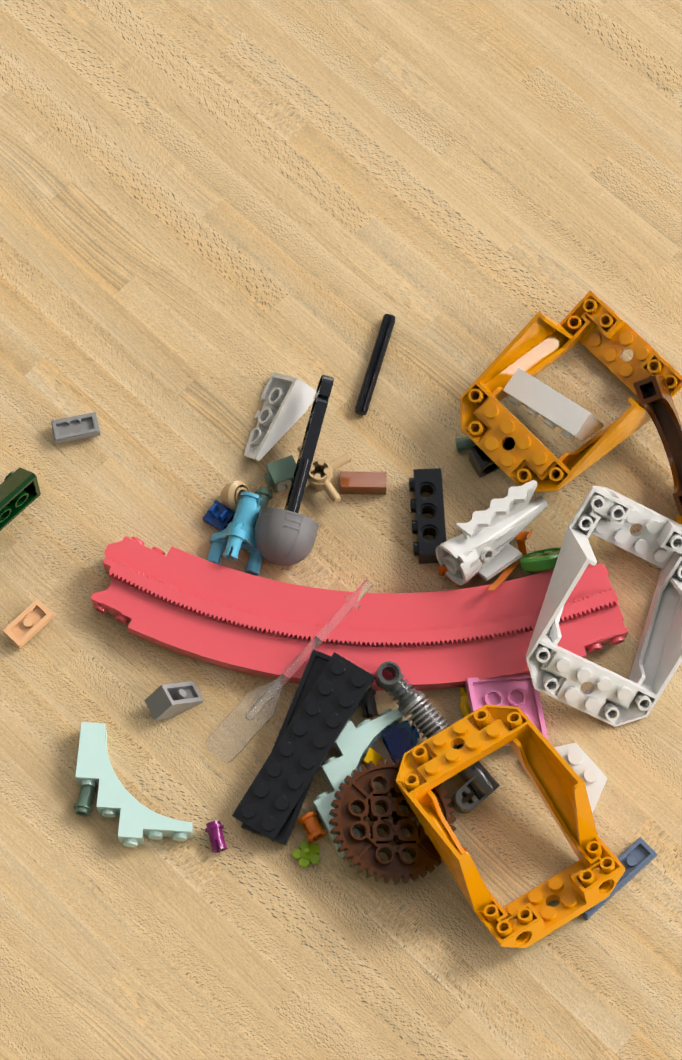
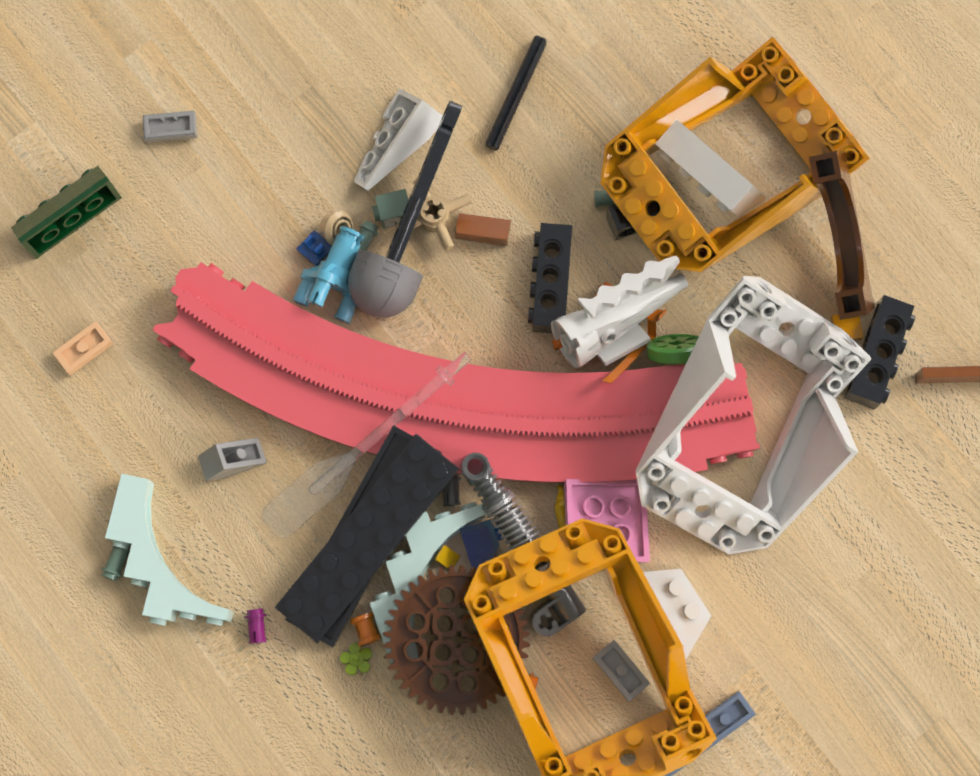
camera: 10 degrees right, 10 degrees up
(537, 832) = (621, 670): none -> light grey plate

